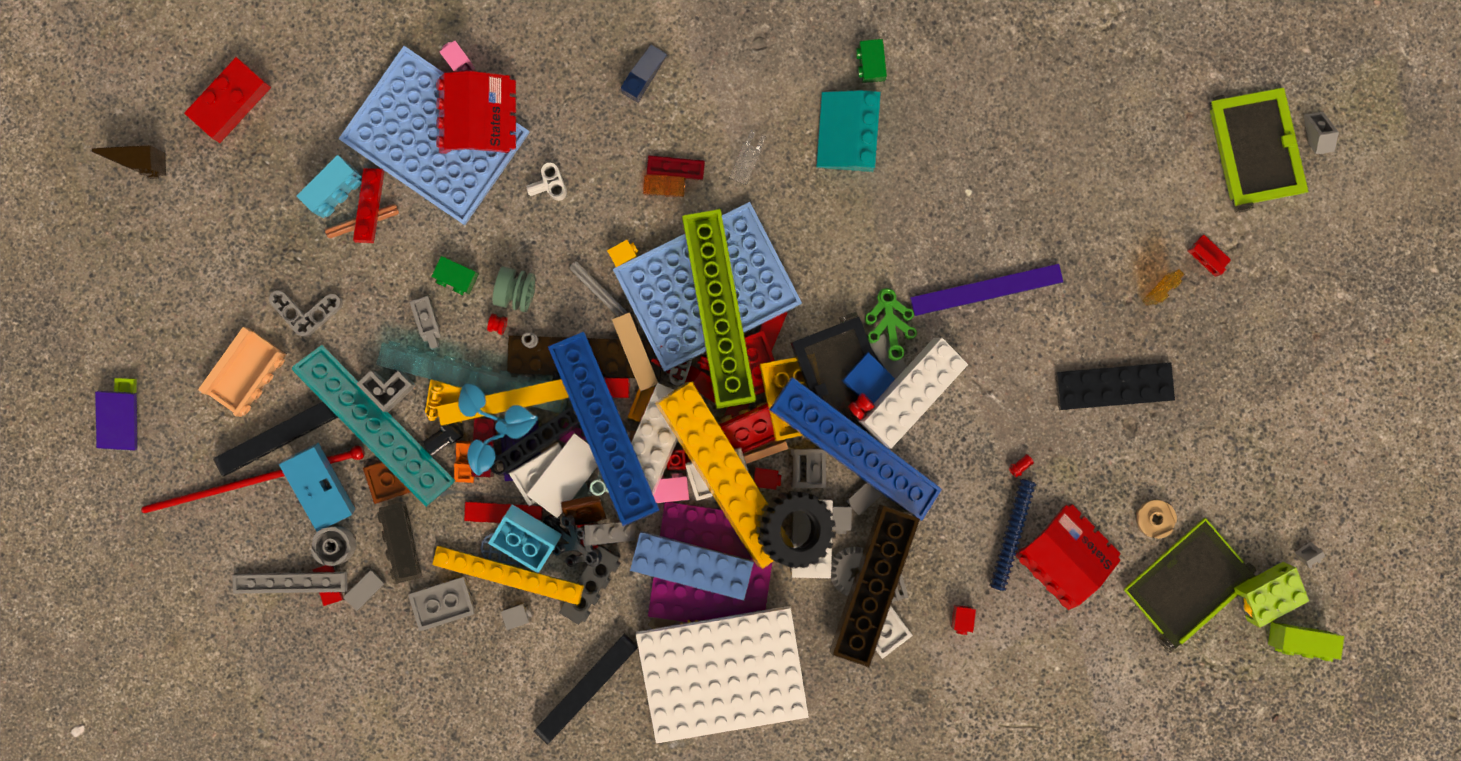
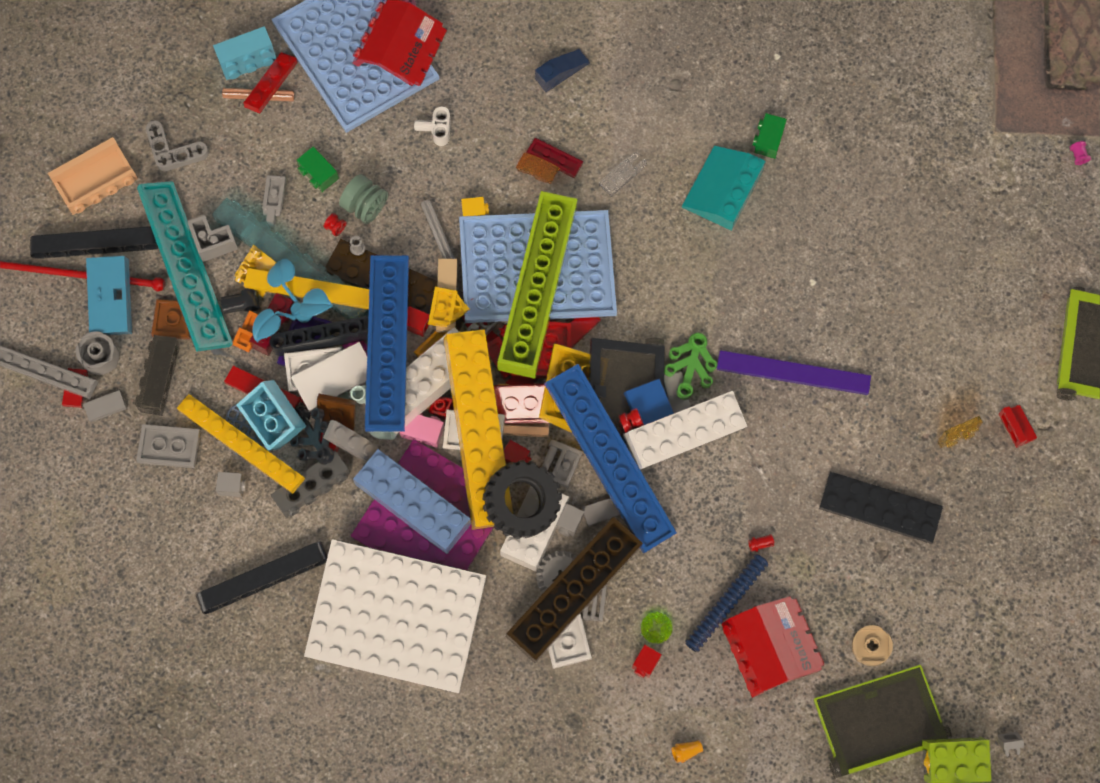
camera: 25 degrees right, 15 degrees down
(641, 366) = (446, 307): none -> yellow slope
(958, 573) = (654, 636): none -> clear neon green gear
(1030, 683) = (684, 751): none -> light orange cone

